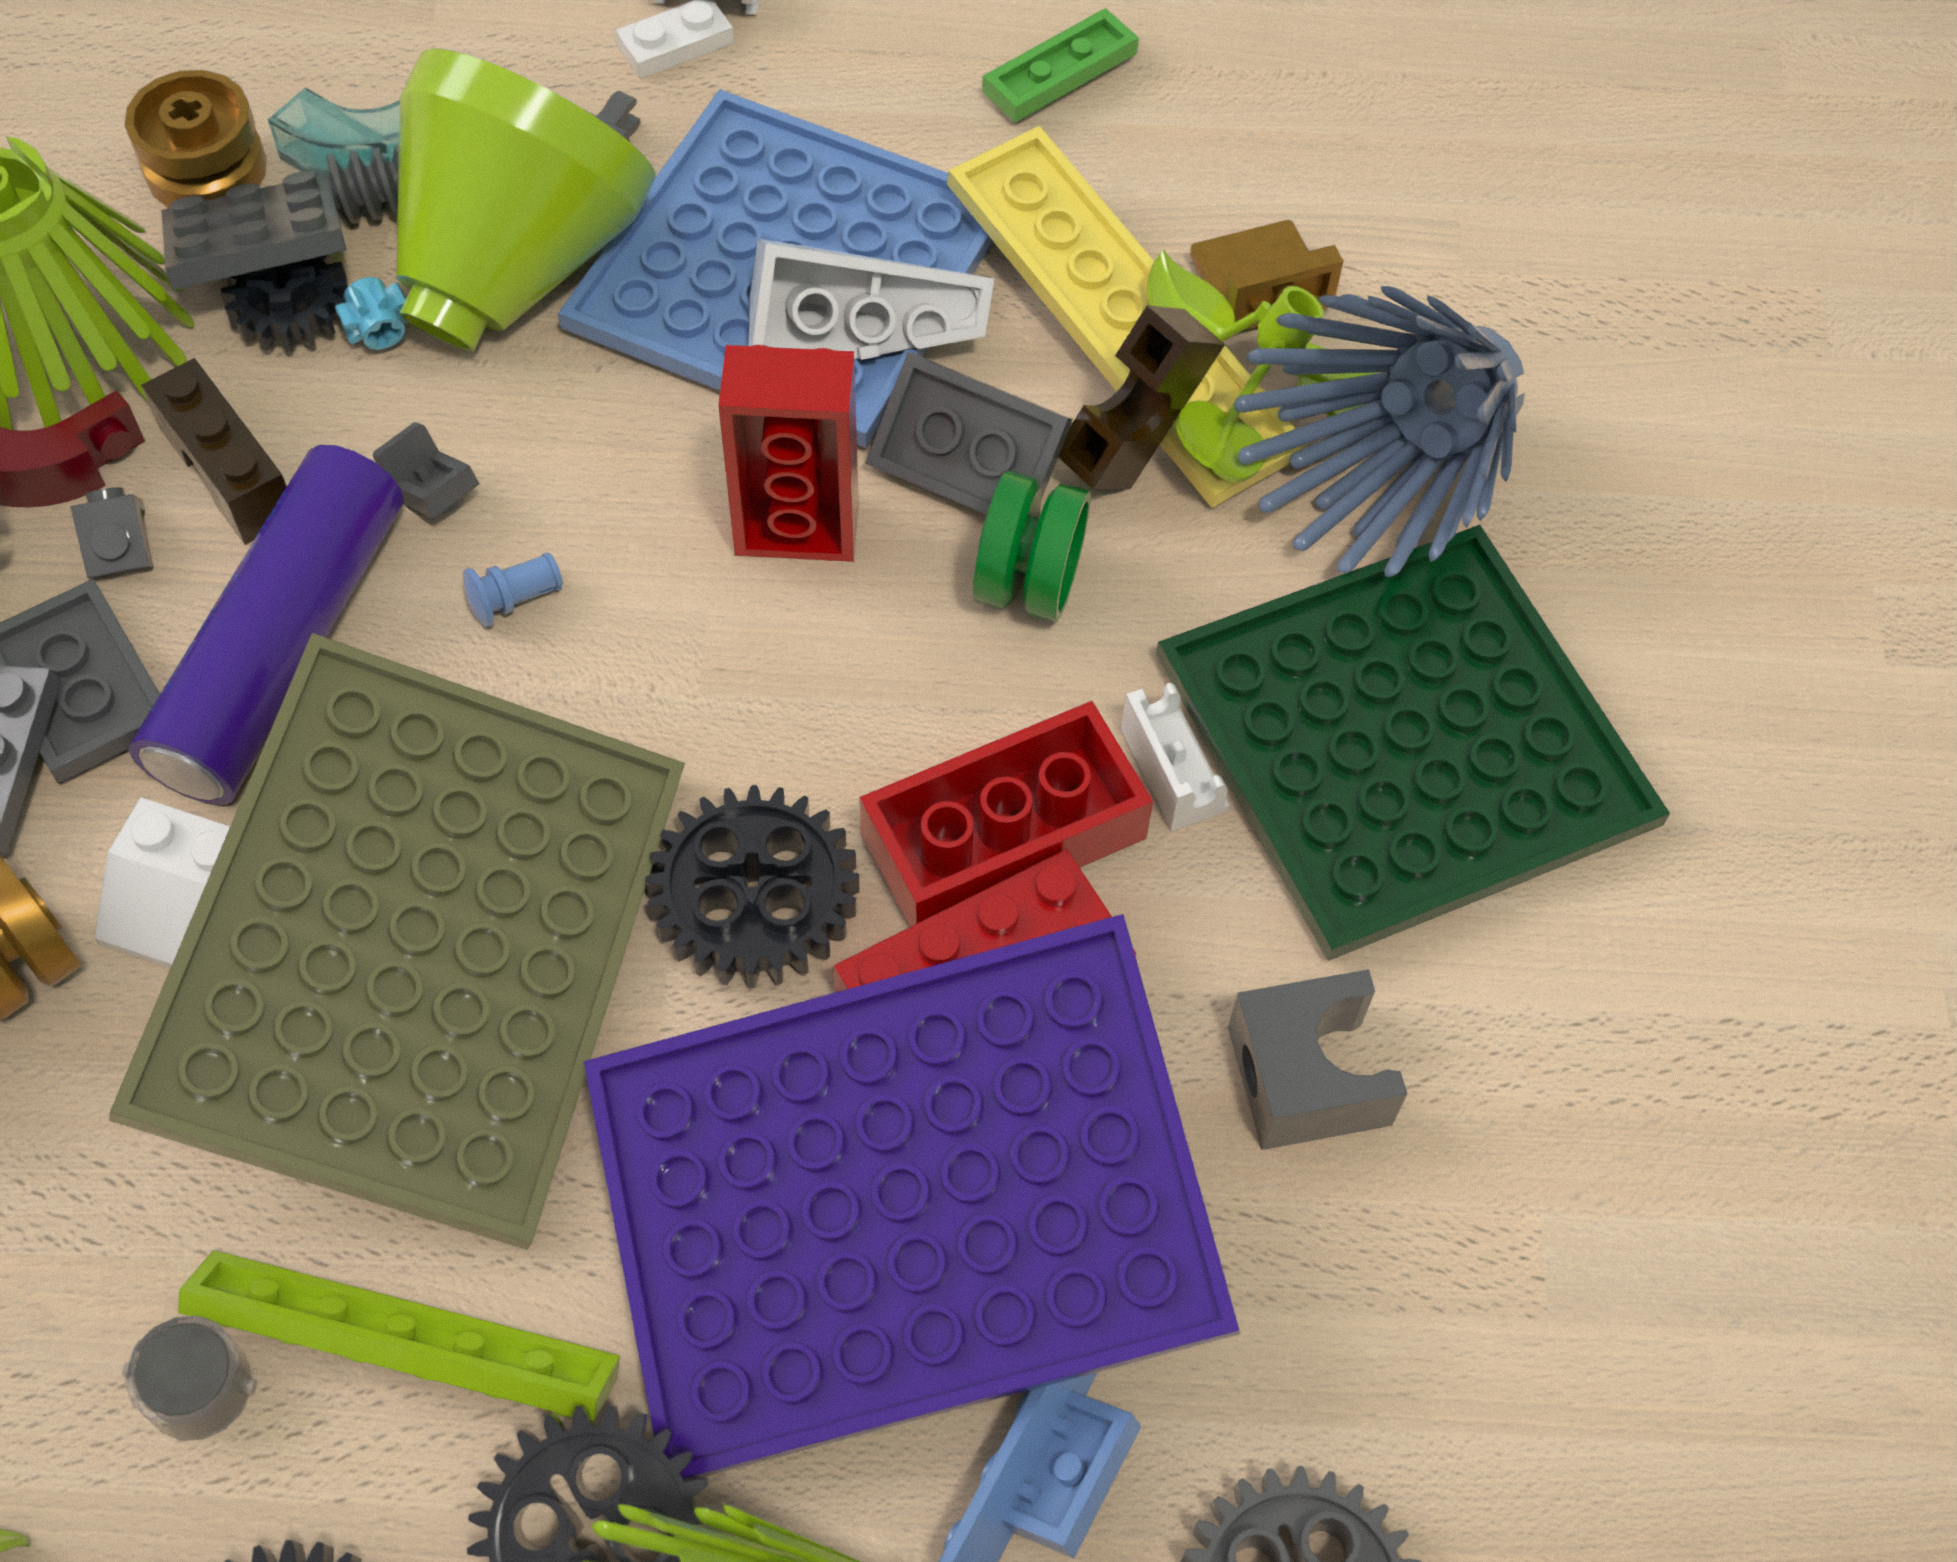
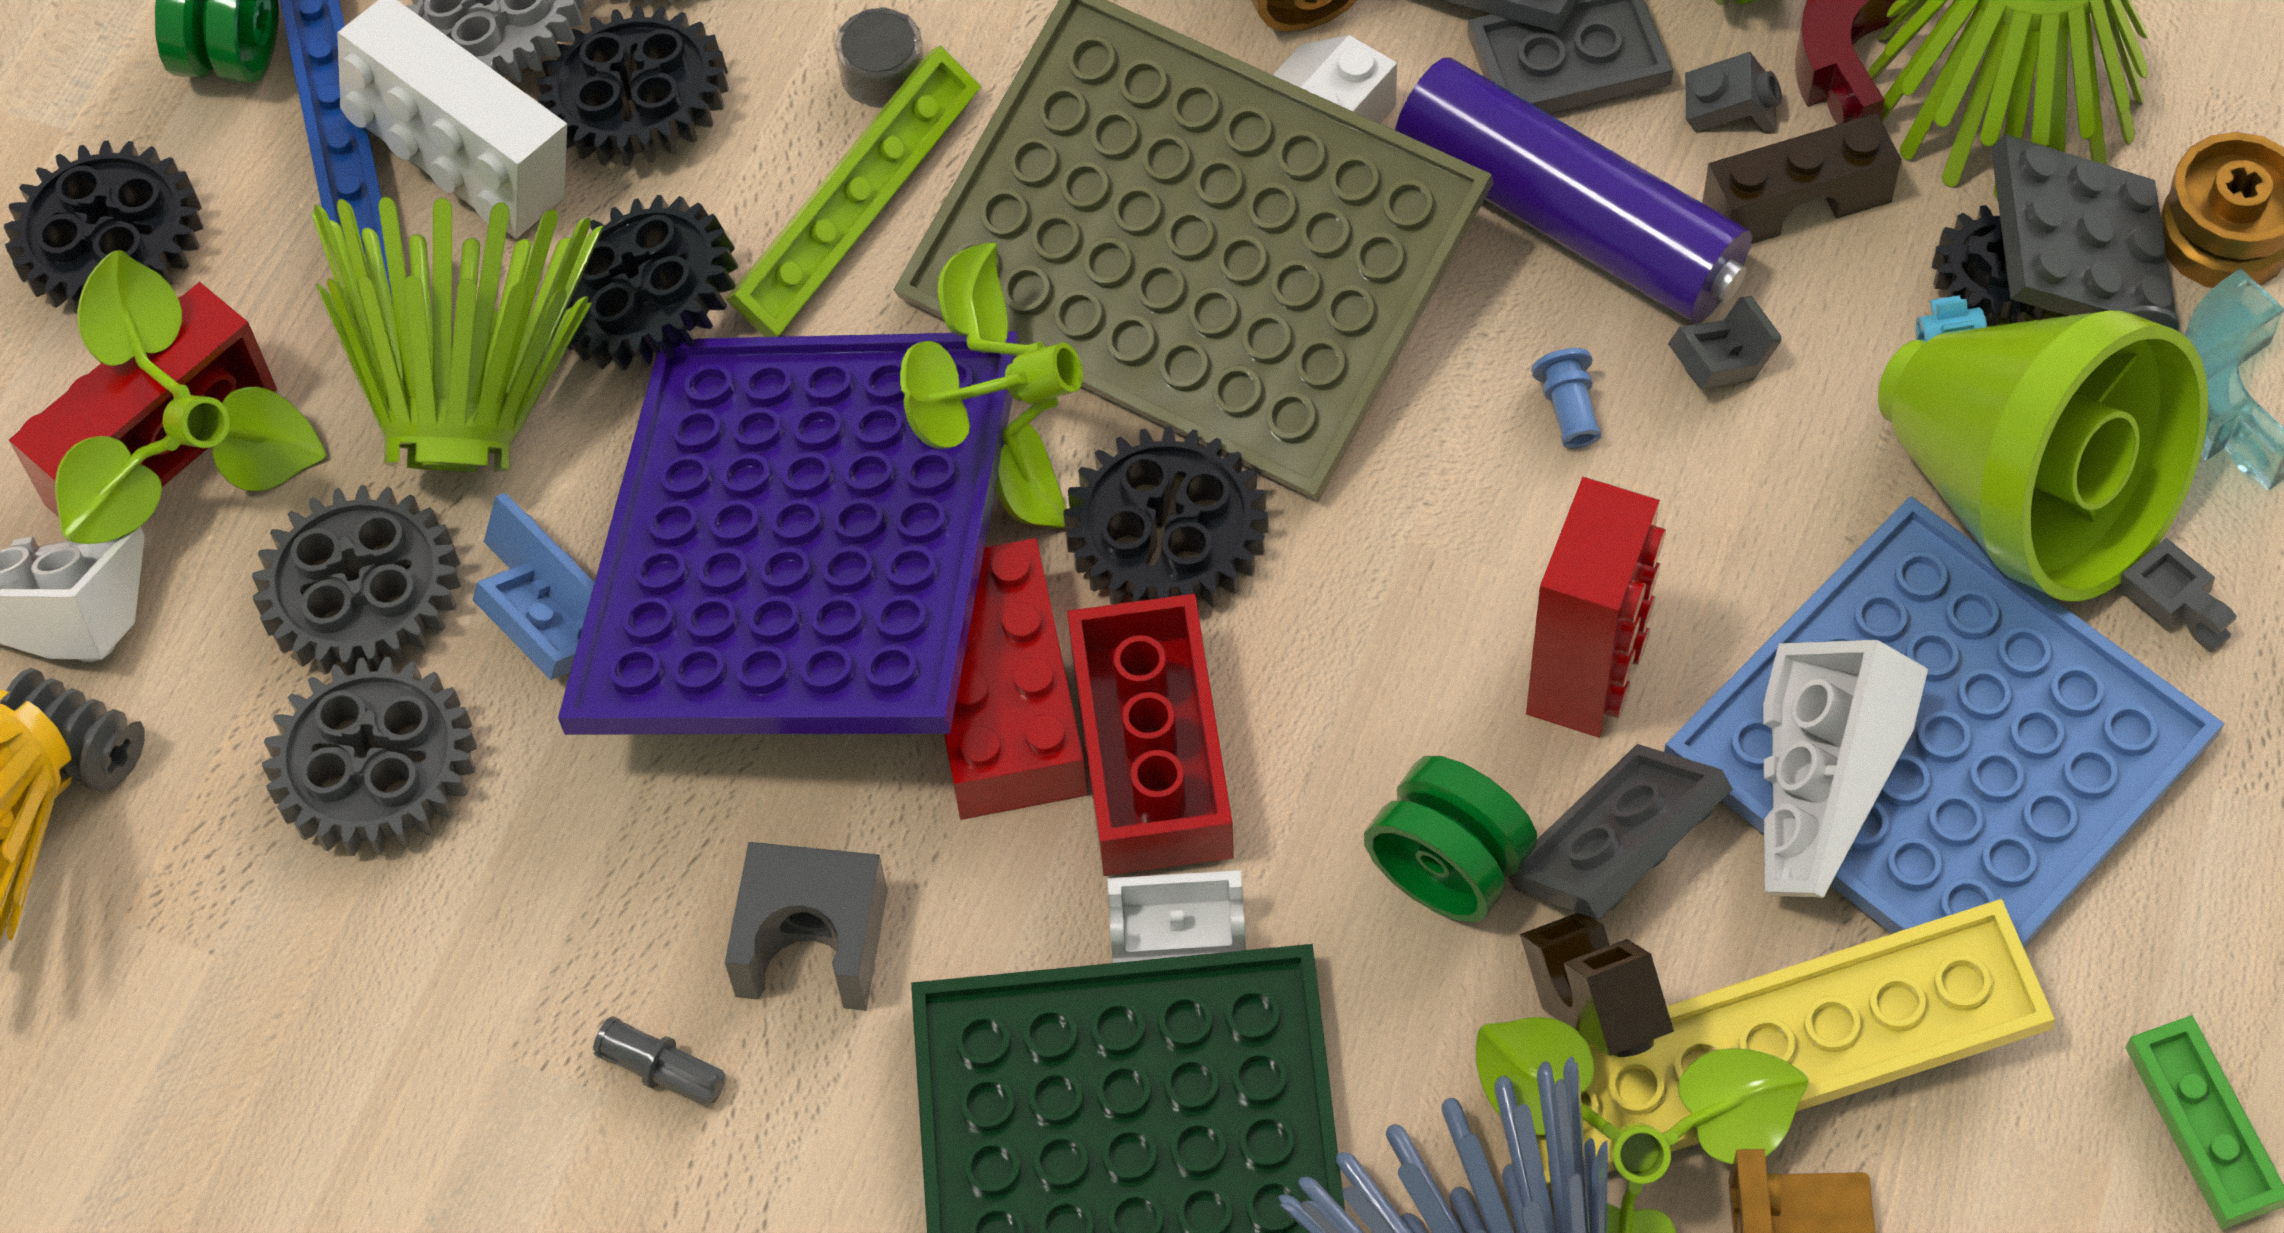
camera: 115 degrees right, 0 degrees up
(688, 966) = (933, 402): none -> lime plant
(1498, 1158) = (658, 1061): none -> dark grey axle

